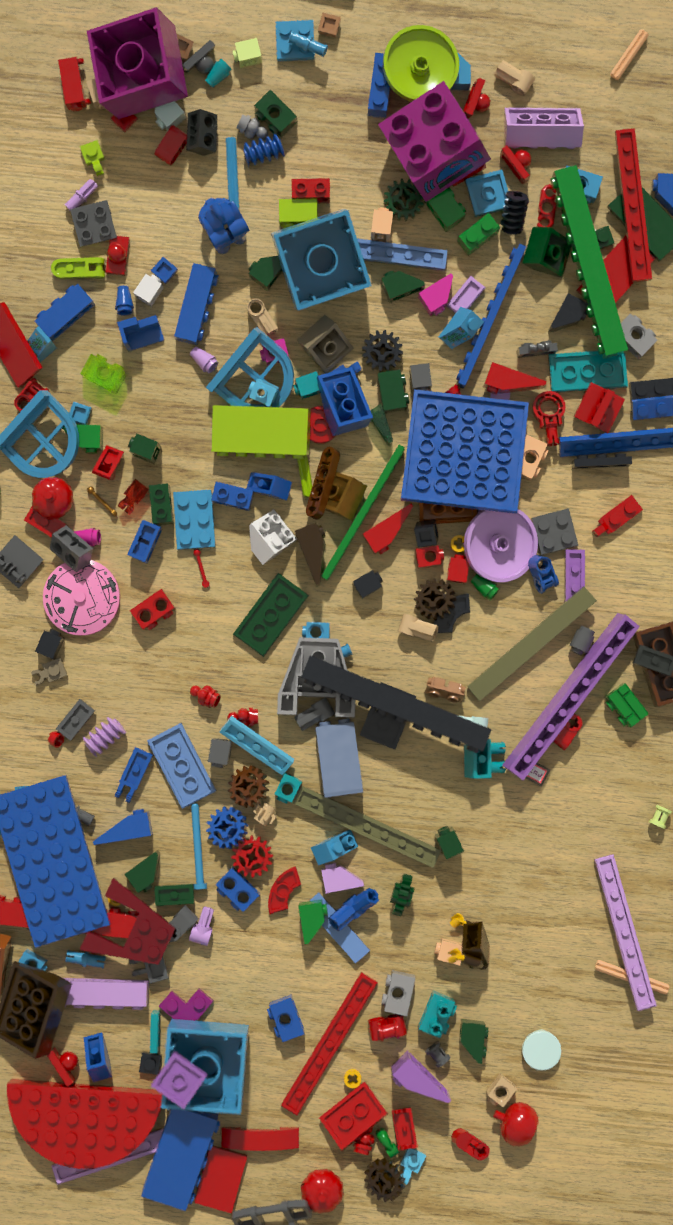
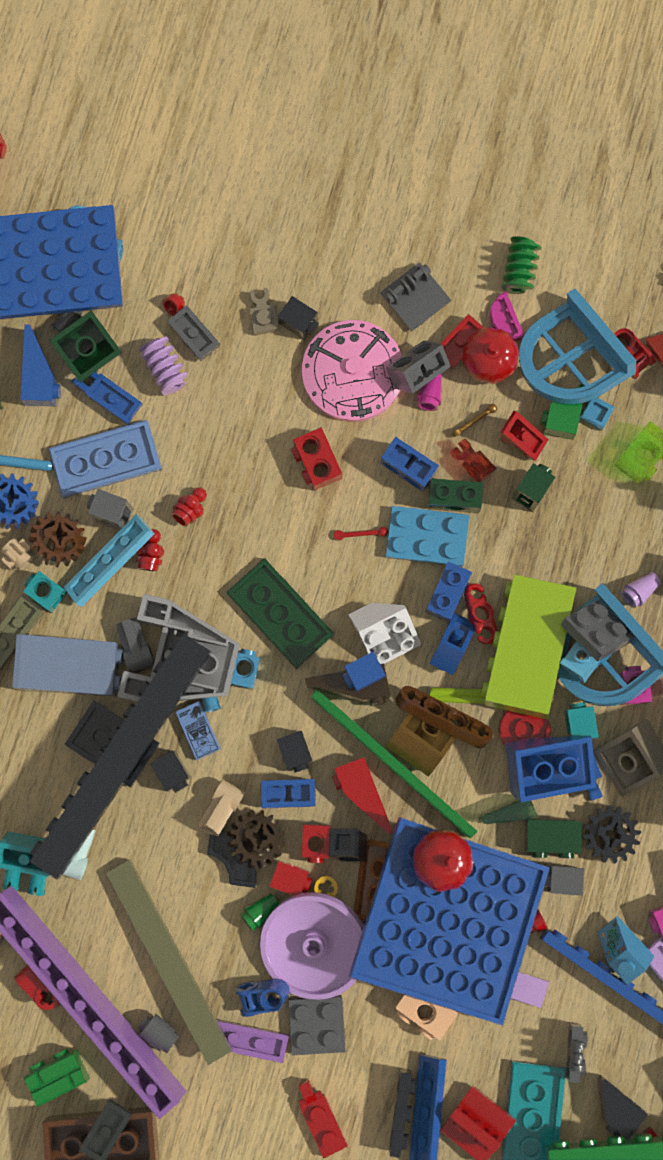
camera: 105 degrees right, 5 degrees down
(21, 493) = (504, 317): none -> dark pink tile
(102, 795) = (85, 346): none -> dark green slope
(241, 384) = (597, 630): none -> dark grey plate
(251, 469) = (473, 603): none -> red piece
(304, 543) = (363, 672): none -> blue brick
(366, 656) = (198, 730): none -> medium blue tile
(399, 582) = (288, 793): none -> blue brick
(400, 669) = (171, 772): none -> black brick
(425, 462) = (443, 860): none -> red piece
(436, 689) = (134, 818): medium nougat hinge -> none
(506, 380) = (539, 1001): red slope -> none
(550, 427) = (461, 1050): red pin -> none

